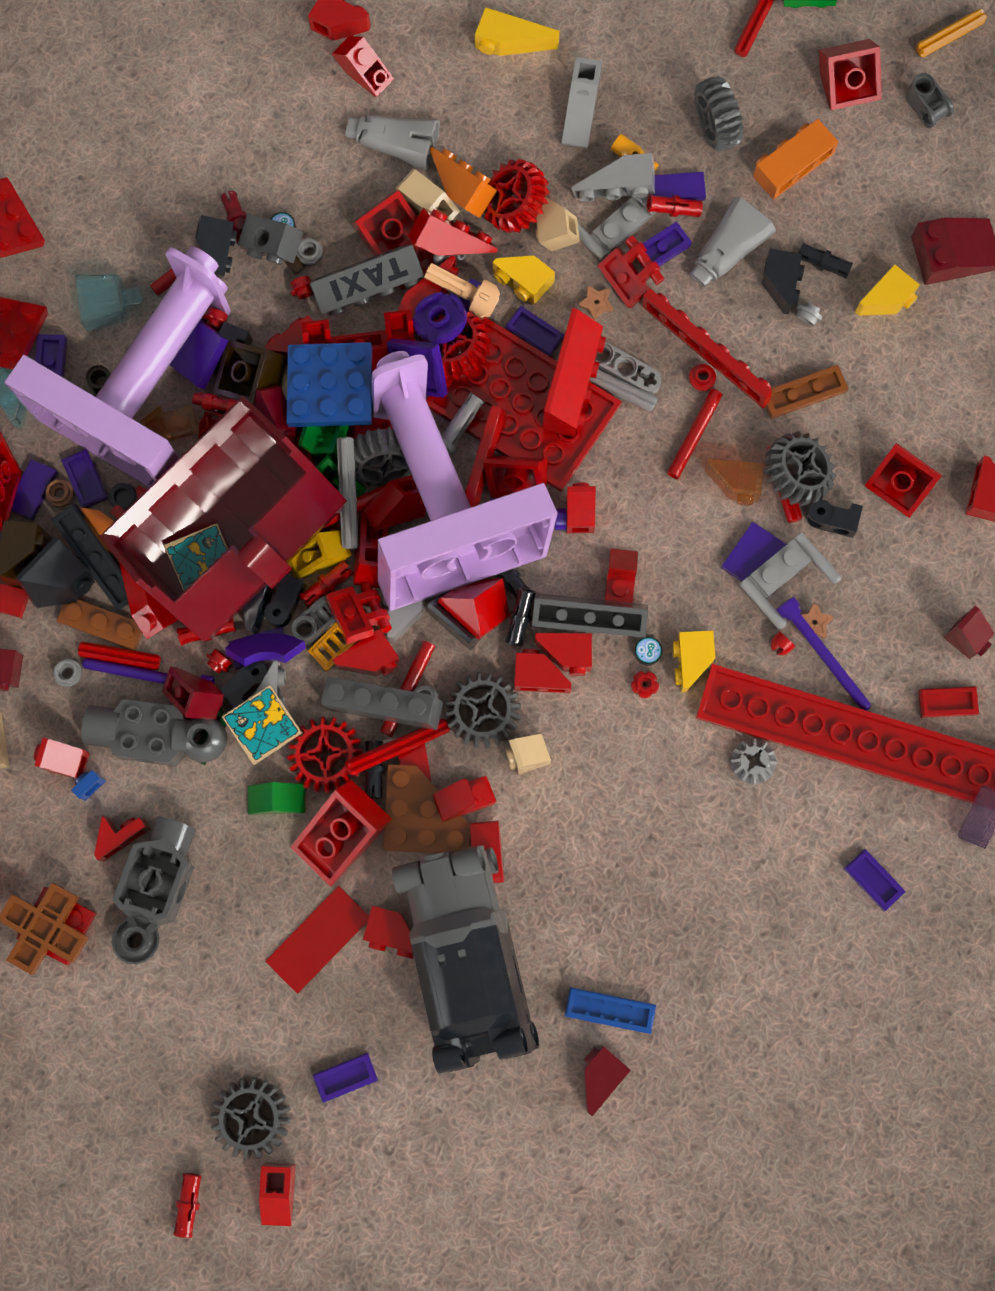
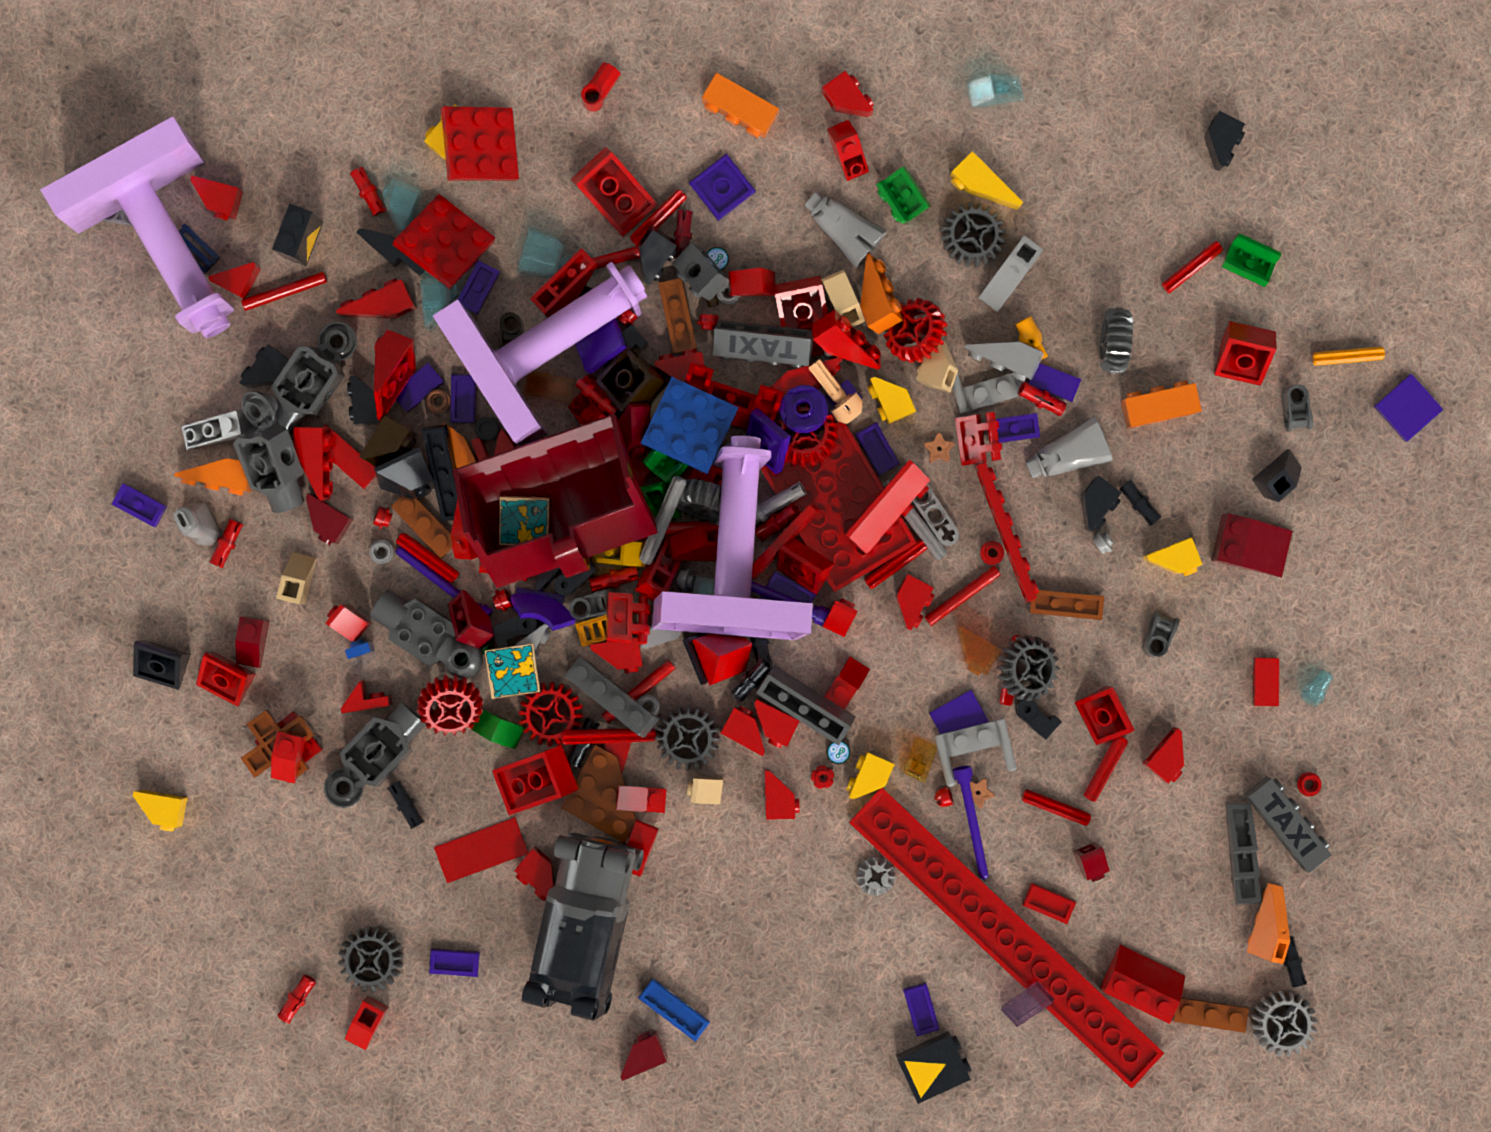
camera: 20 degrees right, 10 degrees up
(53, 636) = (382, 517): none -> red plate
(55, 931) = (287, 756): none -> red slope
(86, 117) = (601, 85): none -> red piece
(136, 309) = (565, 284): none -> red slope
(147, 207) = (614, 191): none -> red slope
(205, 815) = (449, 714): none -> red gear
(206, 207) = (659, 215): none -> red axle
(212, 928) = (405, 804): none -> black pin
(235, 72) = (739, 106): none -> orange brick
(255, 157) = (722, 187): none -> dark purple tile
(267, 295) = (677, 315): none -> dark orange plate
(327, 228) = (752, 282): none -> red slope
(439, 81) = (902, 196): none -> green bracket
(468, 446) = (777, 522): none -> red pin
(528, 97) = (969, 224): none -> dark grey gear
(610, 435) = (895, 564): none -> red axle
(610, 727) = (779, 798): none -> red slope
(644, 459) = (911, 599): none -> red slope
(736, 618) = (919, 760): none -> clear yellow slope
(902, 599) = (1056, 807): none -> red axle
(913, 372) = (1160, 633): none -> dark grey piece
(921, 934) = (934, 1066): none -> black brick
(932, 535) = (1105, 768): none -> red axle
(947, 172) = (1279, 477): none -> black slope

